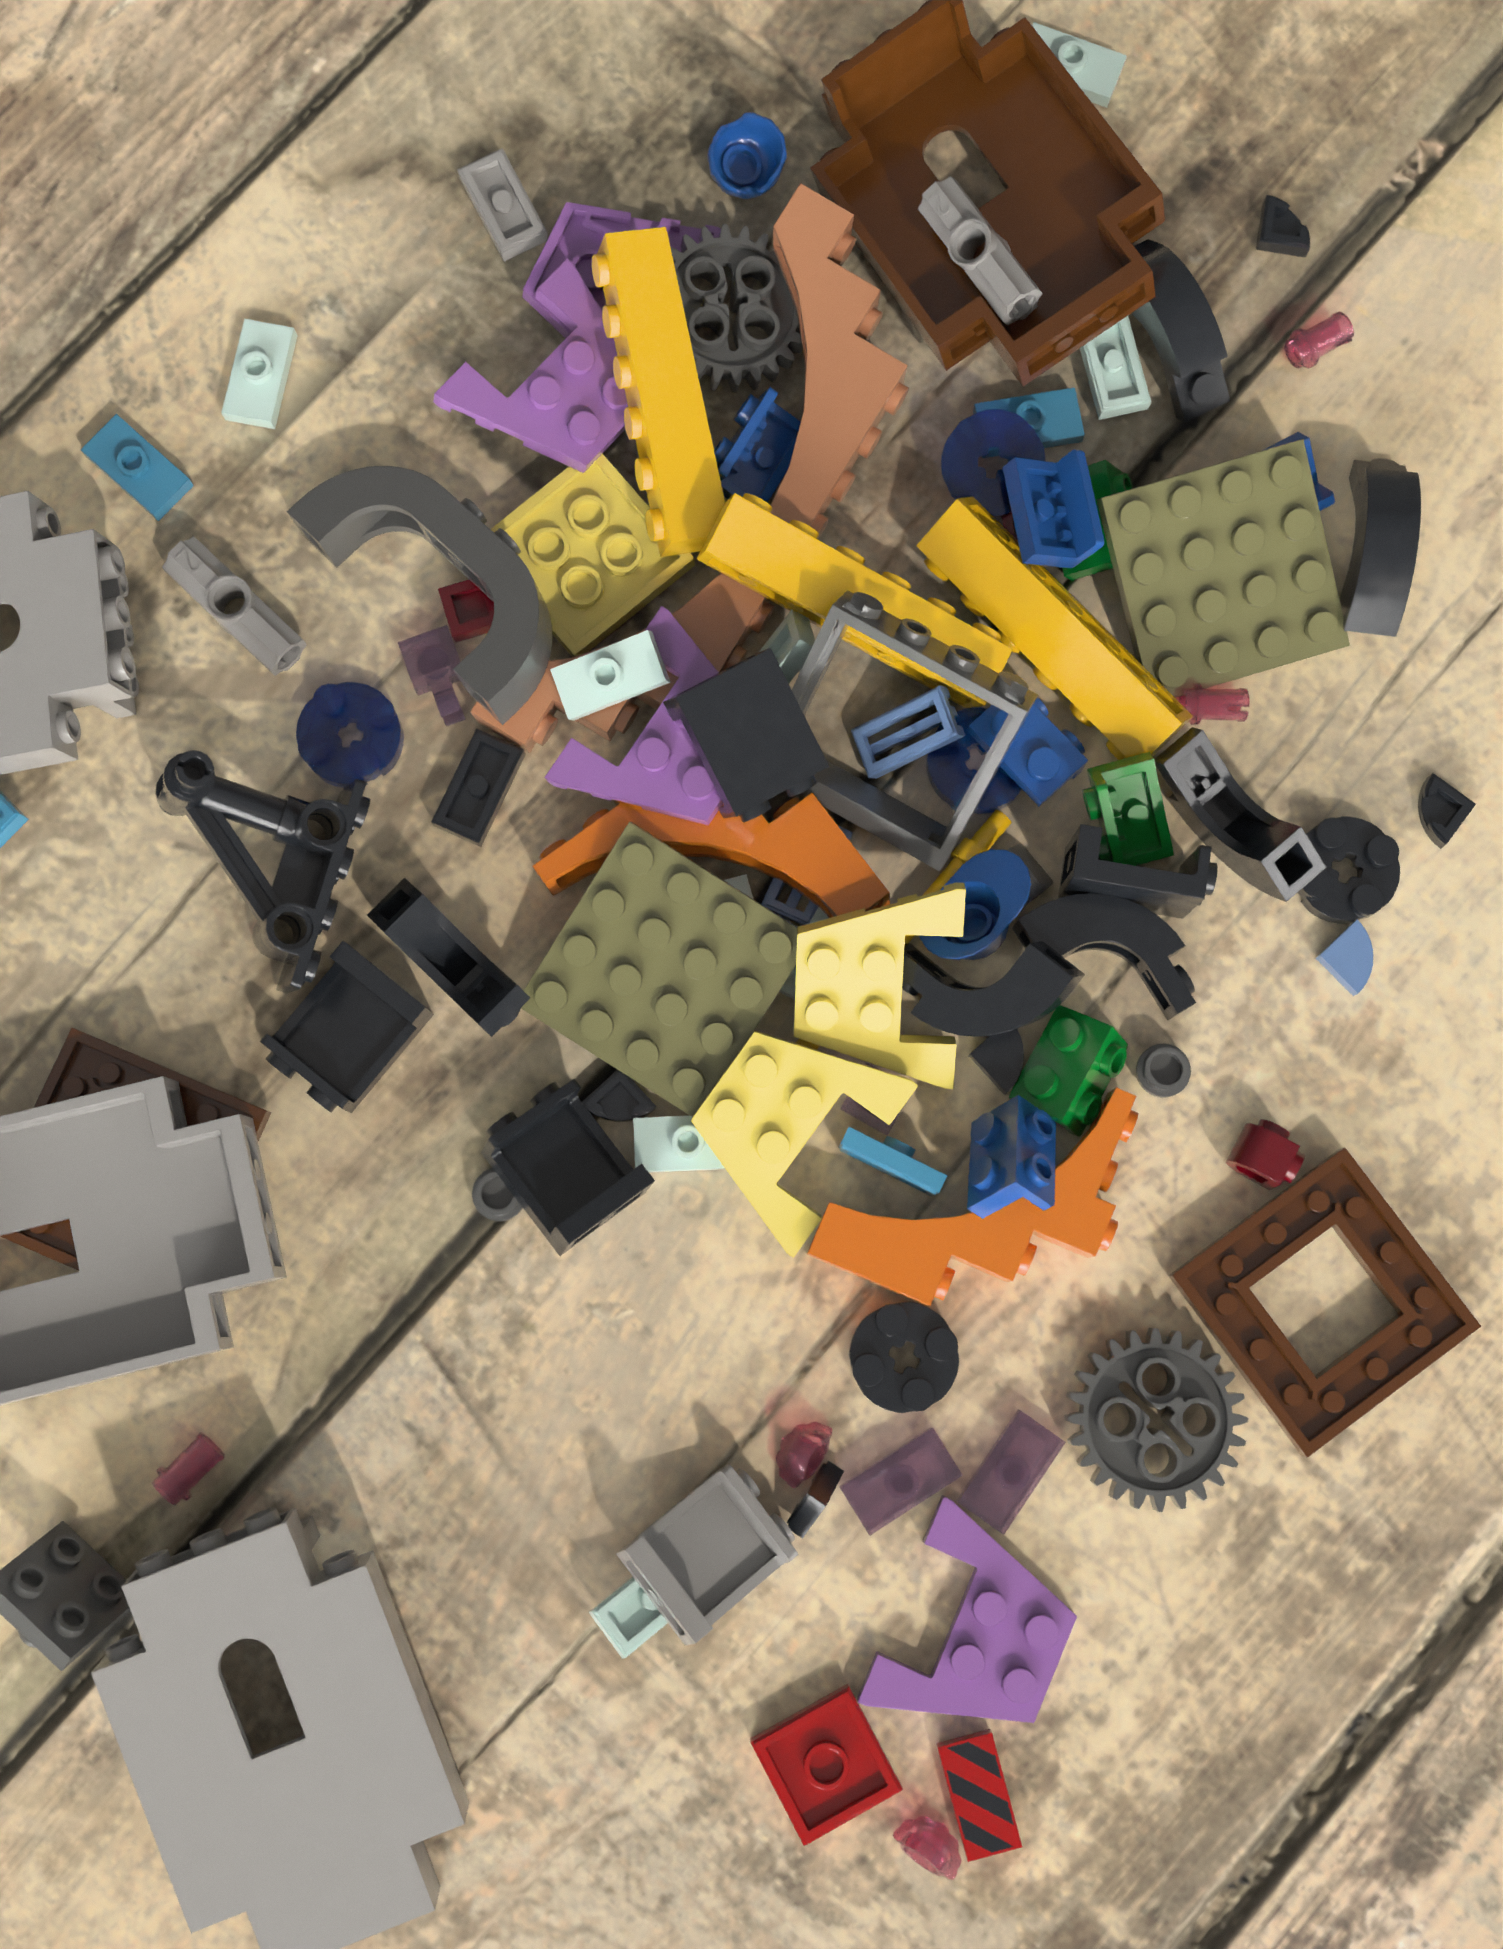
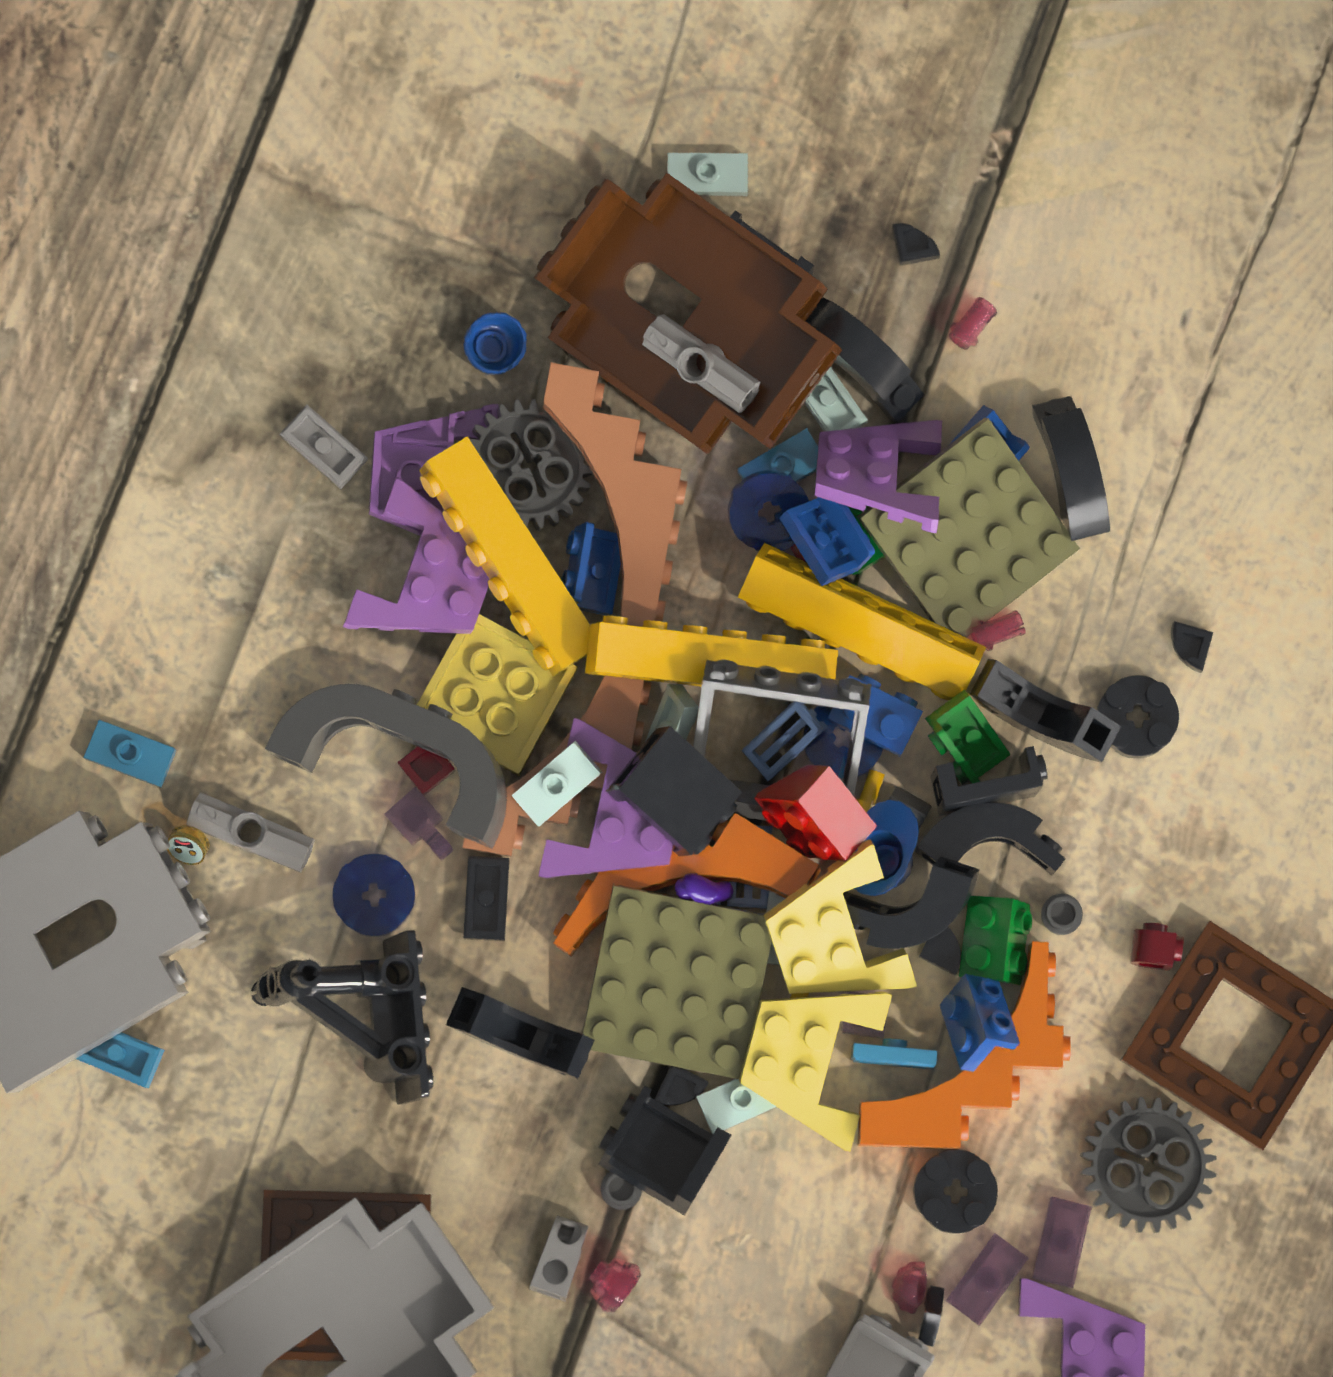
camera: 25 degrees left, 0 degrees up
(156, 592) = (188, 845): none -> tile
(259, 373) = (192, 646): light aqua plate -> none
(346, 1031) = (463, 1114): black panel -> none
(389, 1248) = (559, 1258): none -> light grey leg
(441, 1304) = (613, 1283): none -> clear pink cone
(737, 870) = (703, 889): none -> dark purple arm
(911, 828) = (816, 813): none -> red slope
(1133, 446) = (861, 469): none -> medium lavender wing
(1349, 958) = (1164, 780): medium blue tile -> none

